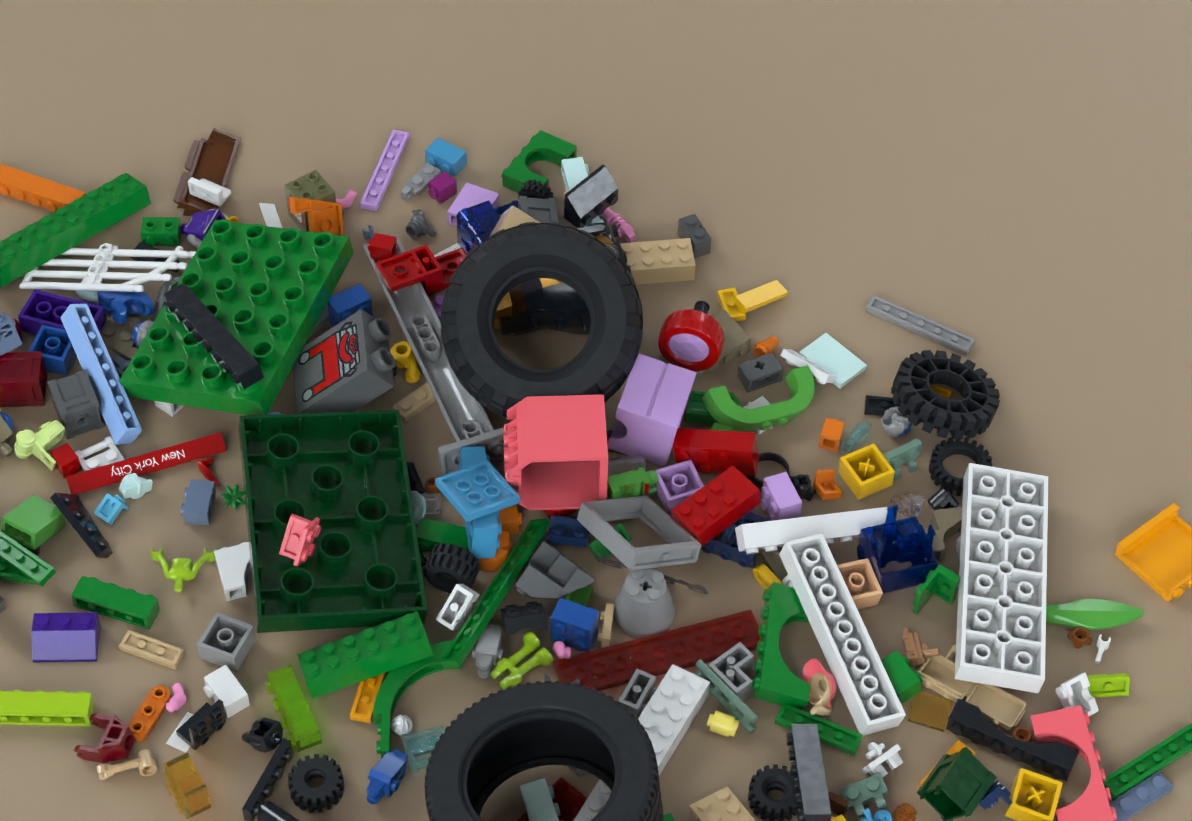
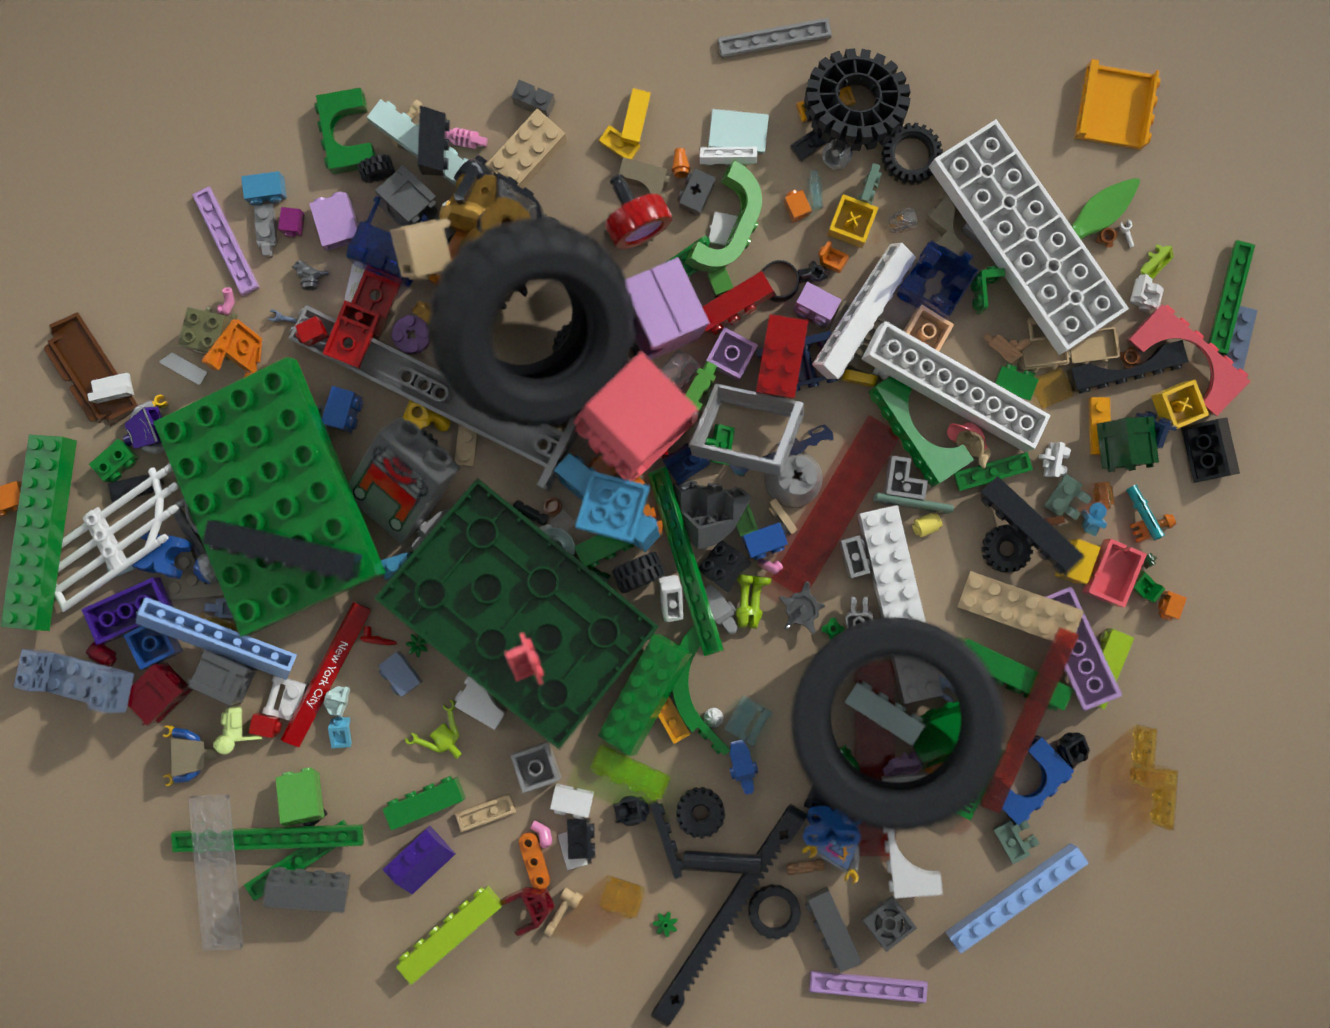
camera: 40 degrees left, 35 degrees up
(81, 521) = (332, 765): black wing -> none
(942, 499) = (925, 198): black piece -> none

